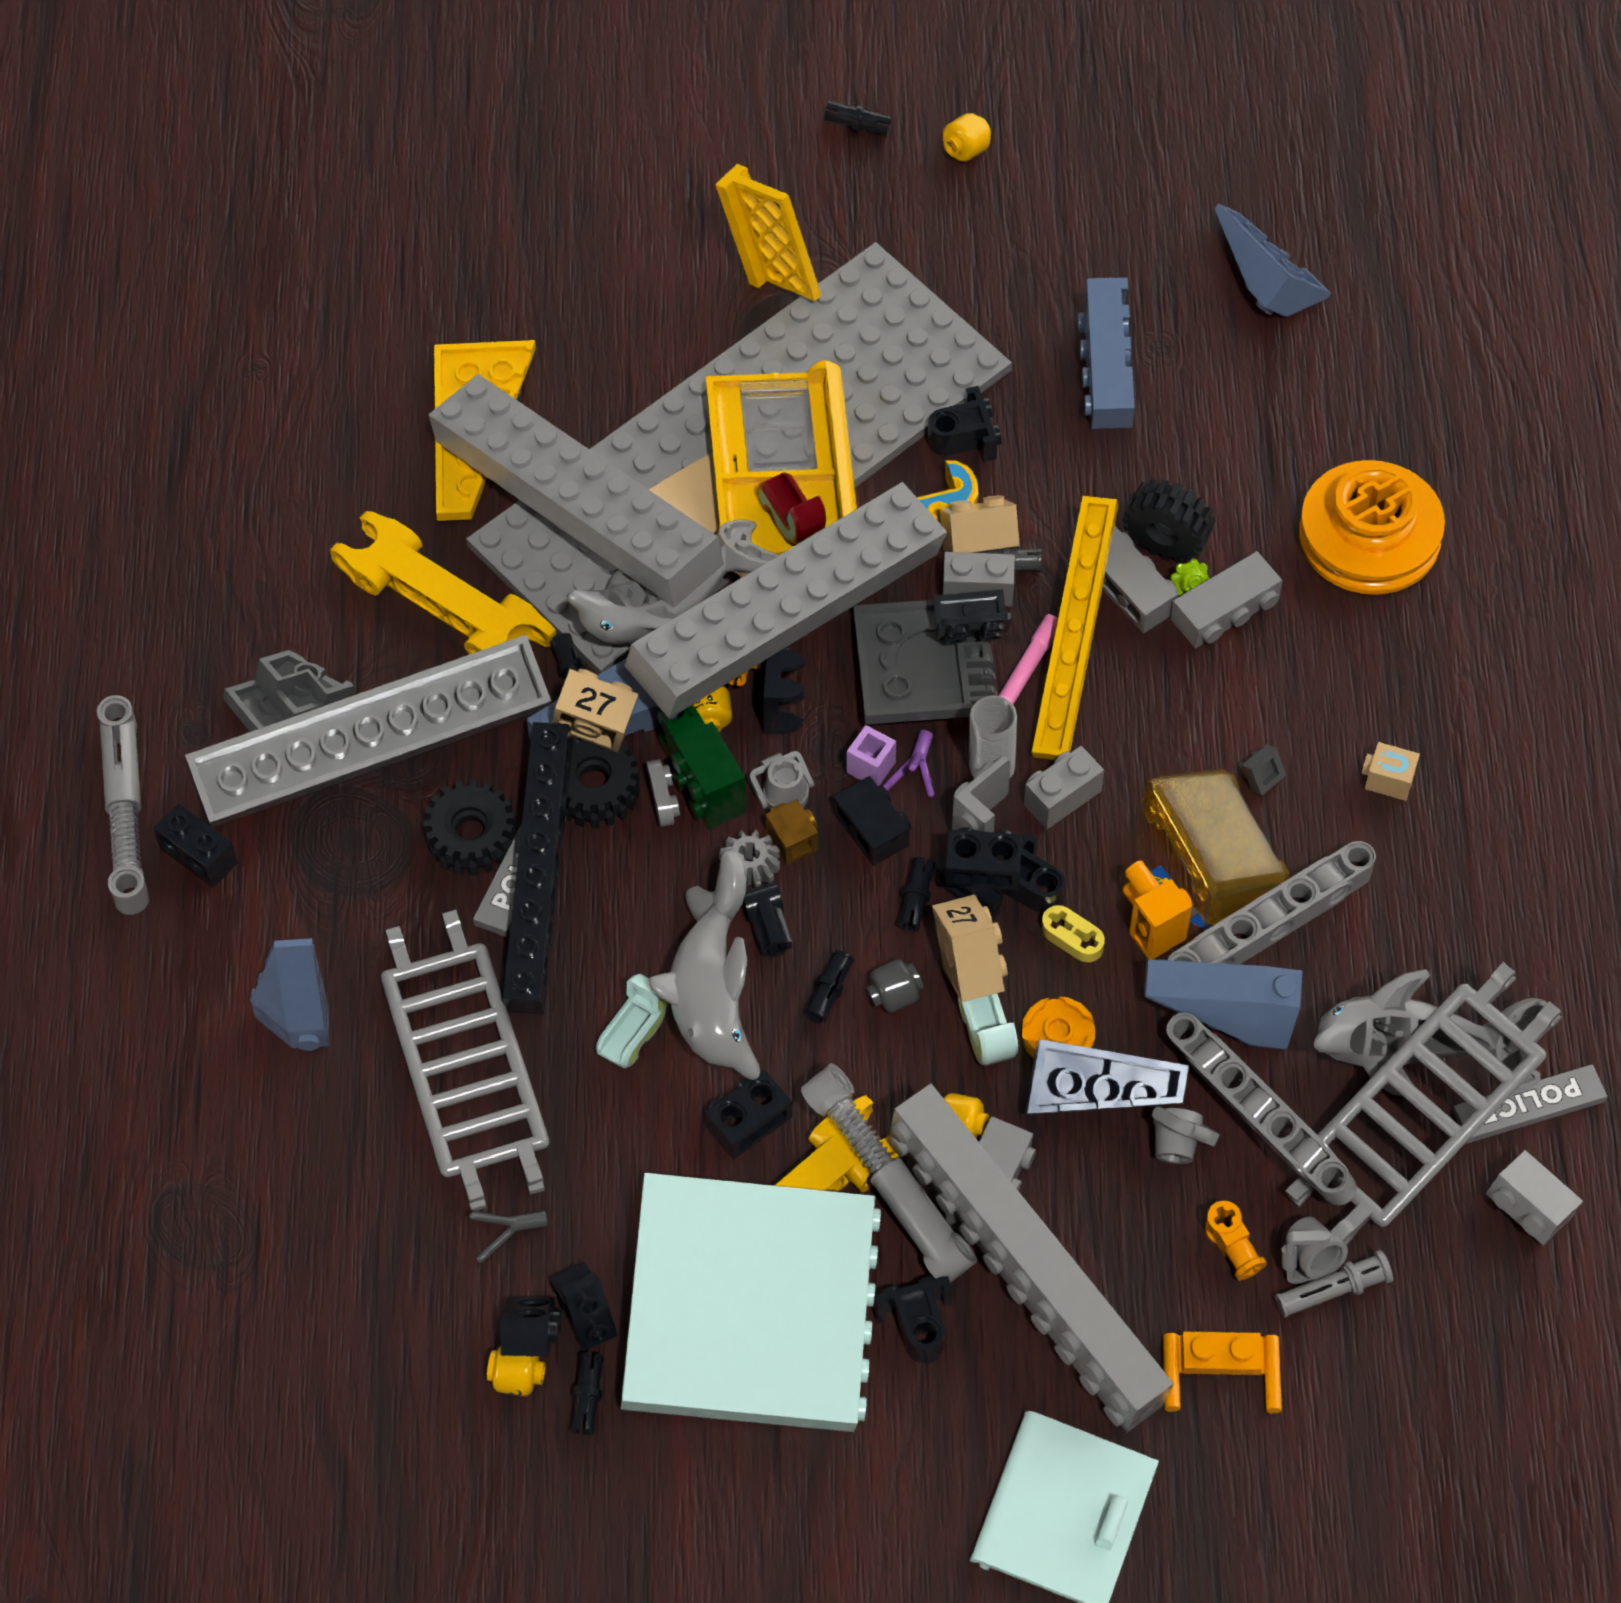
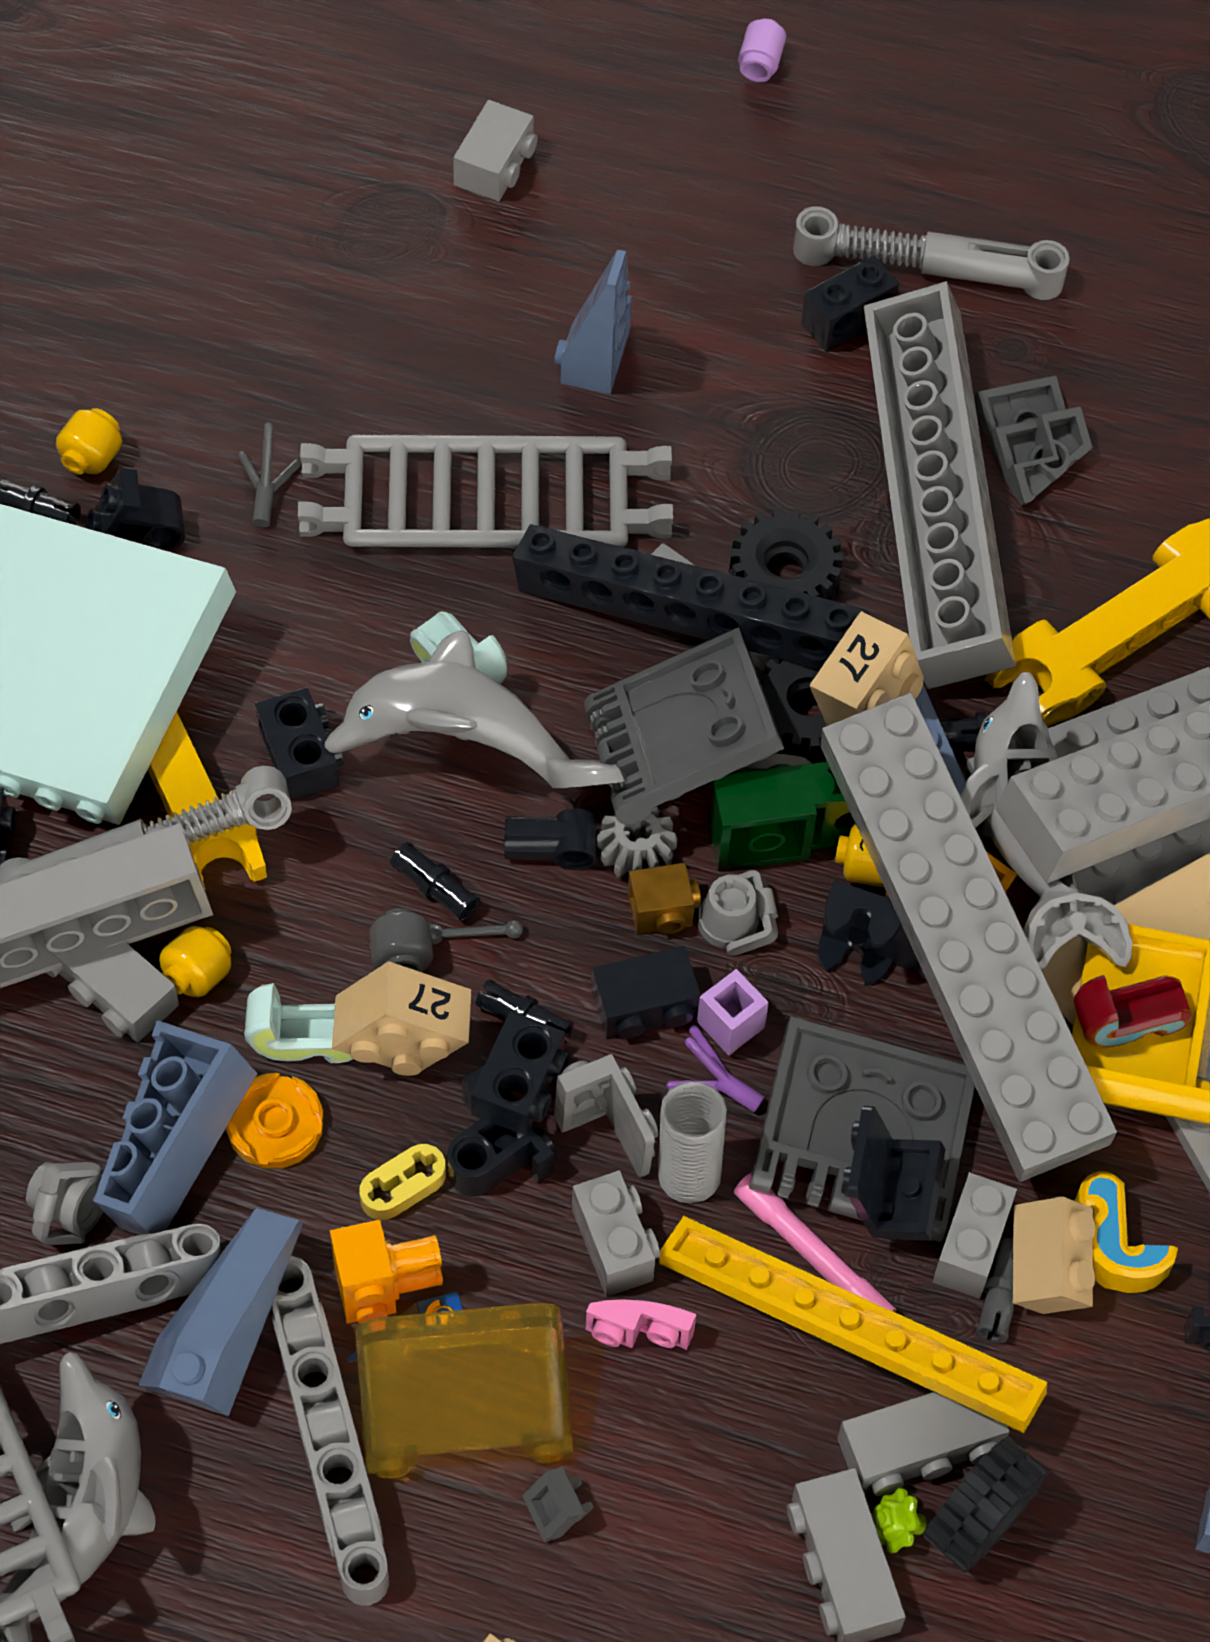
camera: 105 degrees right, 0 degrees up
(101, 1159) = (494, 150): none -> light grey brick
(529, 1326) = (116, 438): black brick -> none
(655, 829) = (682, 724): none -> dark grey hinge
(847, 926) = (513, 929): none -> dark grey hinge
(1119, 757) = (622, 1320): none -> bright pink slope

